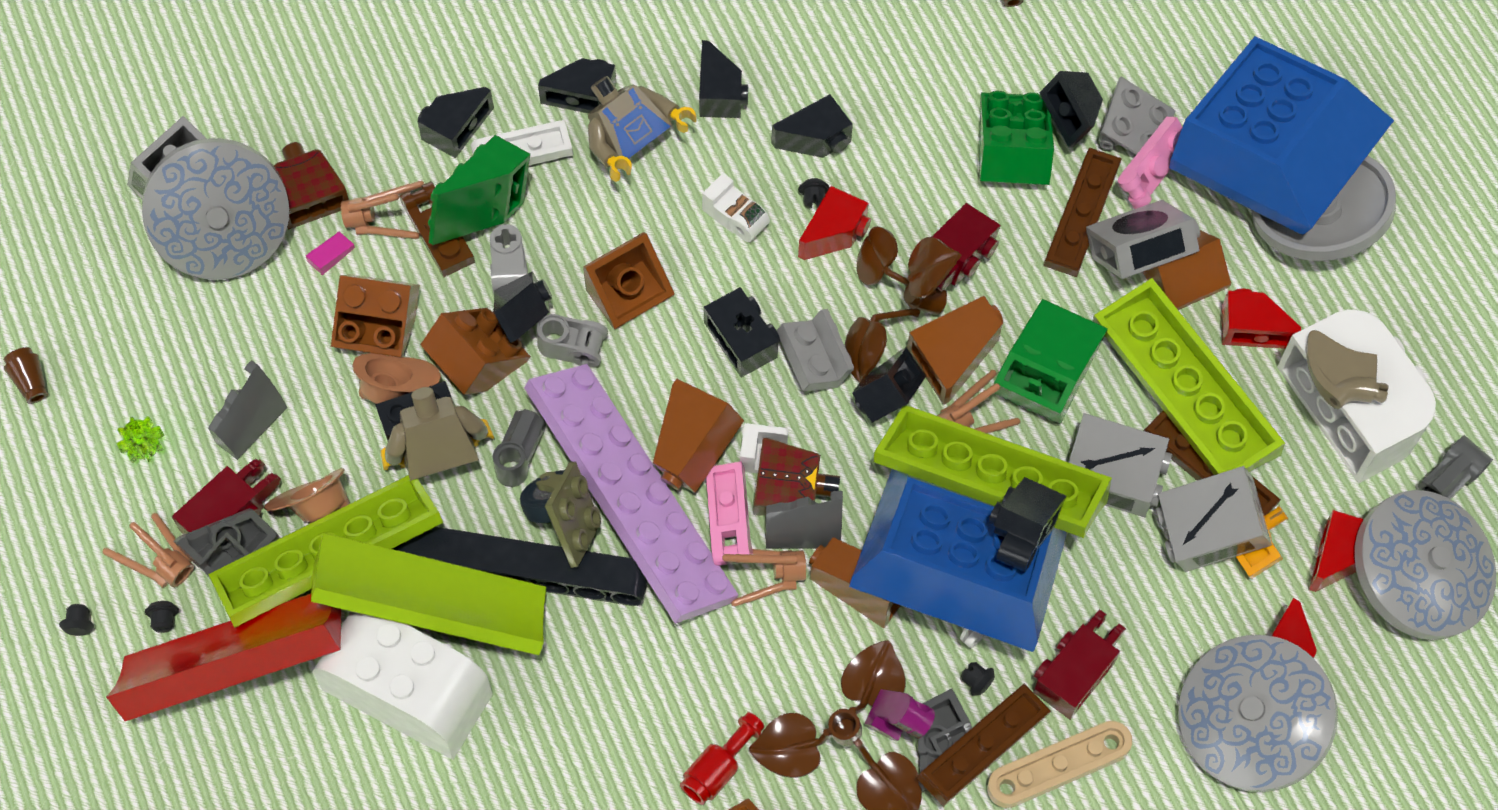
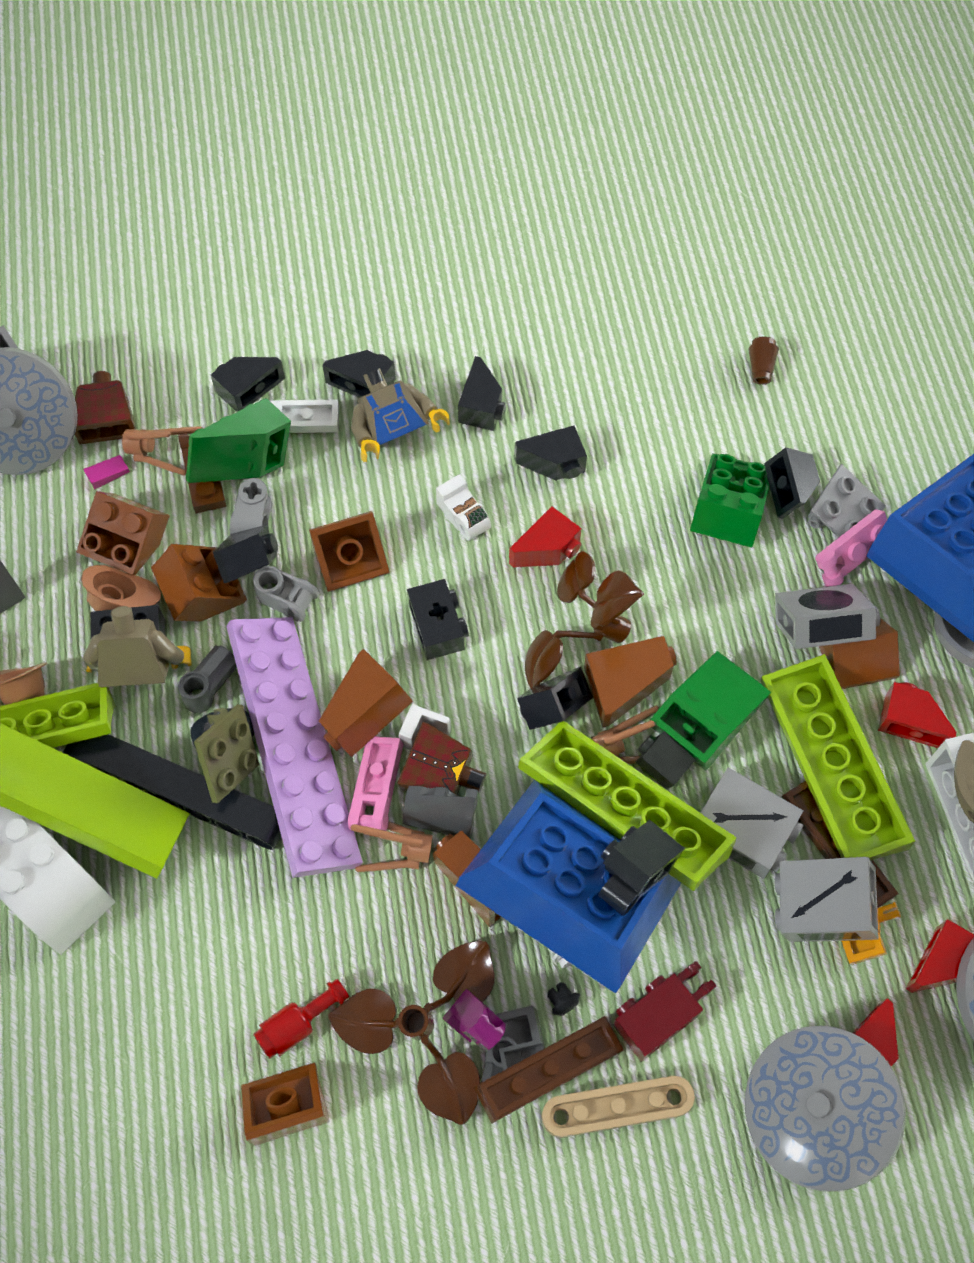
camera: 15 degrees right, 0 degrees up
(813, 191) = (537, 507): black piece -> none
(816, 352) = (497, 653): light grey bracket -> none
(970, 235) = (662, 580): dark red hinge -> none
(1017, 420) = (664, 759): none -> pearl dark grey brick
(1082, 210) = (777, 577): reddish brown tile -> none

